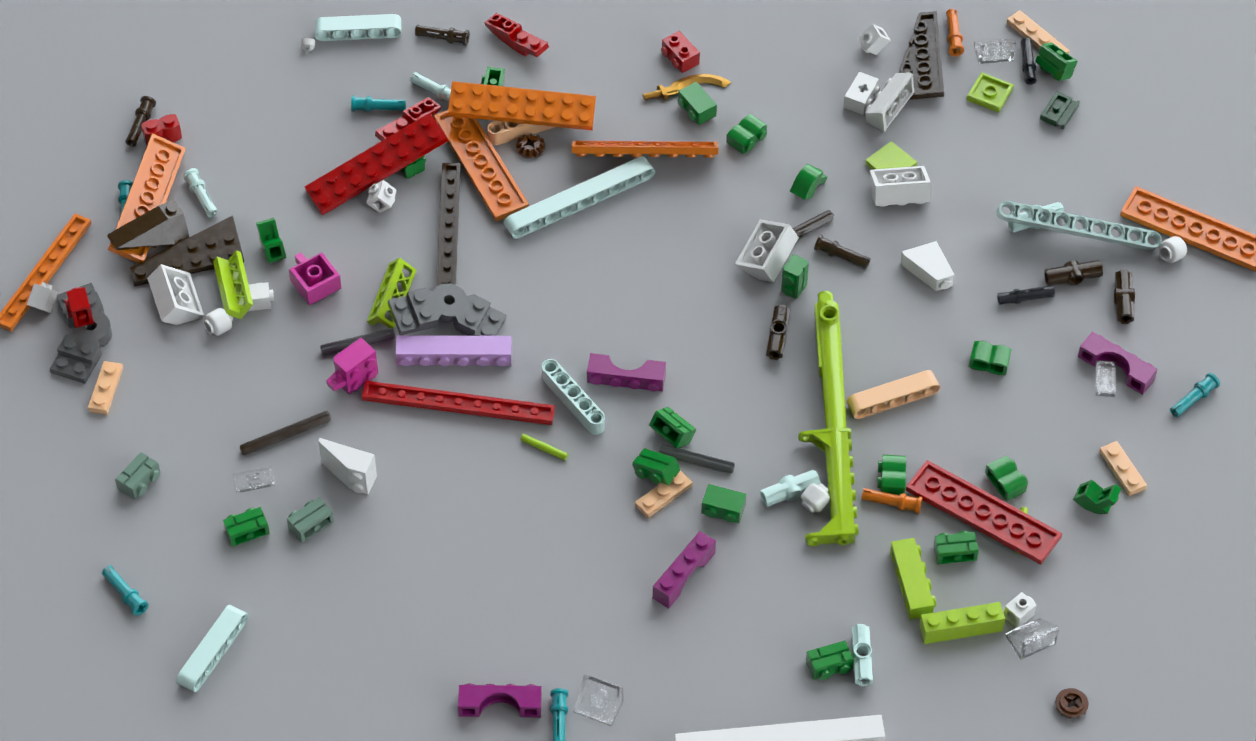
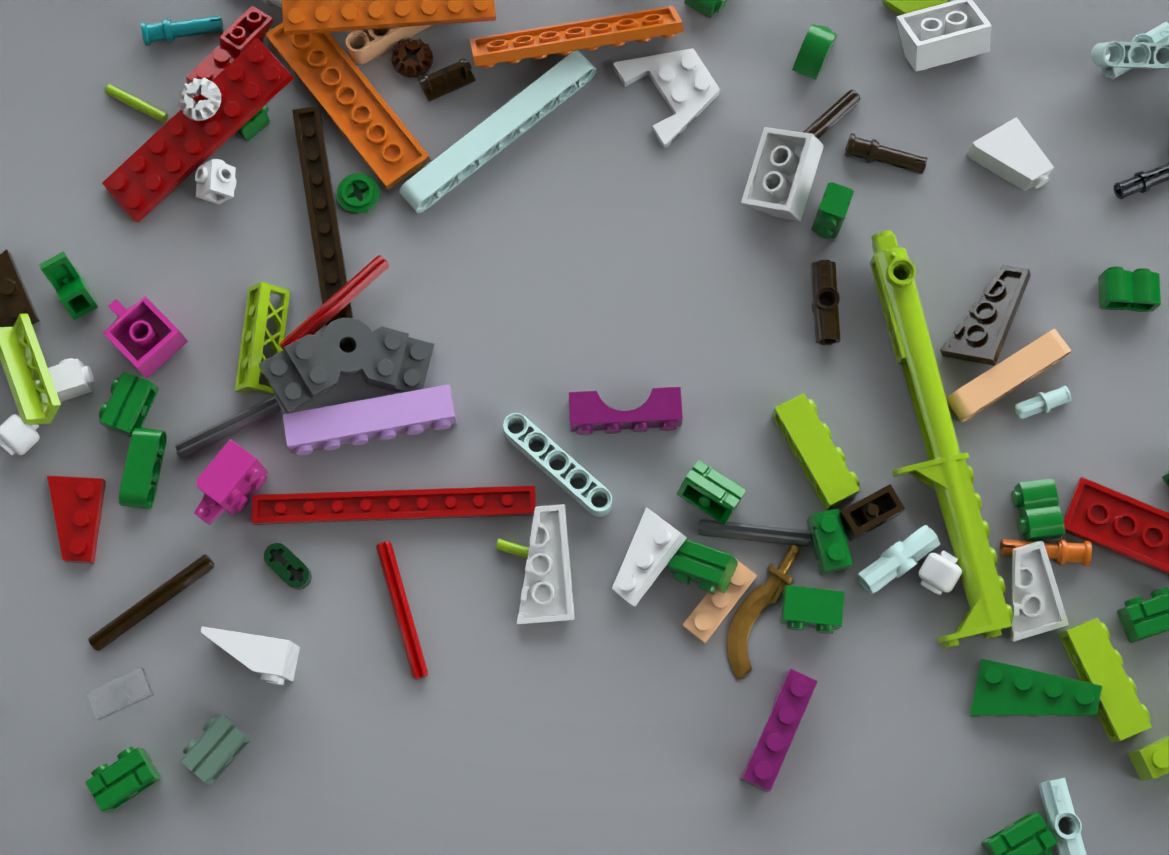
camera: 10 degrees left, 20 degrees up
(246, 376) = (77, 515): none -> red wing
(294, 316) = (128, 404): none -> green brick
(296, 354) = (142, 468): none -> green beam
(337, 144) = (136, 103): none -> lime piece
(376, 429) = (292, 561): none -> dark green beam
(384, 148) = (205, 108): none -> white gear
(449, 461) = (402, 610): none -> red axle
(455, 273) = (338, 300): none -> red axle
(480, 214) = (365, 184): none -> green gear
(548, 162) = (447, 79): none -> dark brown hinge
(552, 453) = (547, 579): none -> white wing
(620, 457) = (647, 556): none -> white wing
(682, 503) = (752, 608): none -> pearl gold sword
(711, 187) = (681, 82): none -> white wing
(745, 469) = (829, 542): none -> green brick
(749, 417) = (816, 452): none -> lime brick
(776, 455) = (871, 512): none -> dark brown brick
(851, 573) = (1019, 691): none -> green wing
(877, 521) = (1034, 593): none -> white wing
(888, 359) = (989, 321): none -> wing
(913, 414) = (1043, 402): none -> light aqua axle

